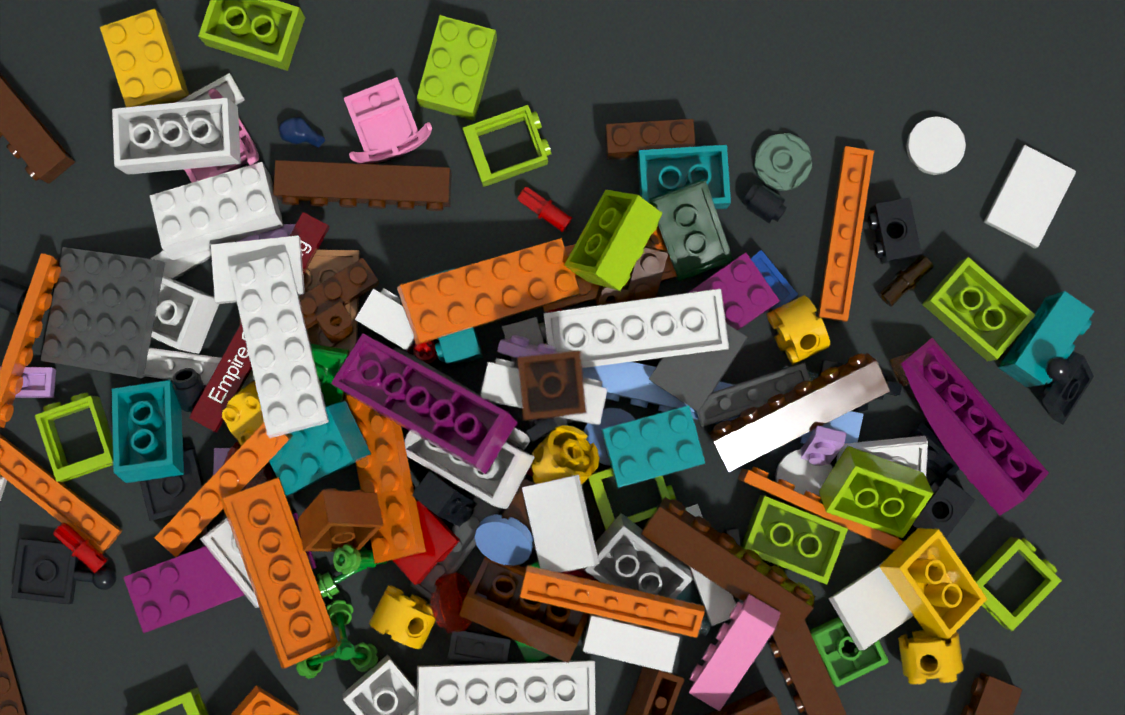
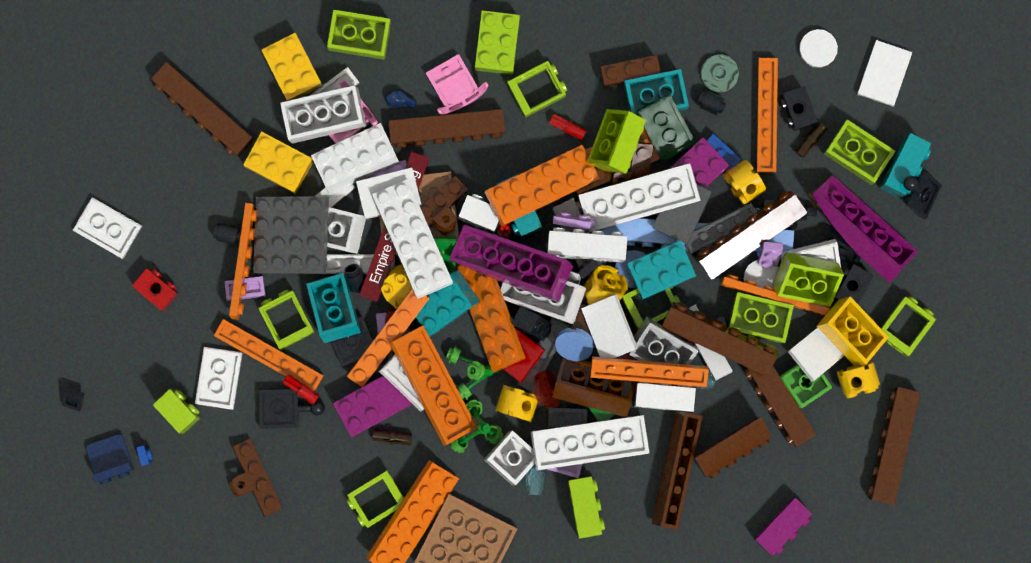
camera: 10 degrees left, 0 degrees up
(102, 200) = (278, 162): none -> yellow brick
(210, 638) = (392, 437): none -> dark brown pin
(339, 520) = (468, 345): dark orange brick -> none
(552, 385) = (592, 239): reddish brown brick -> none
(734, 652) = (732, 393): bright pink brick -> none

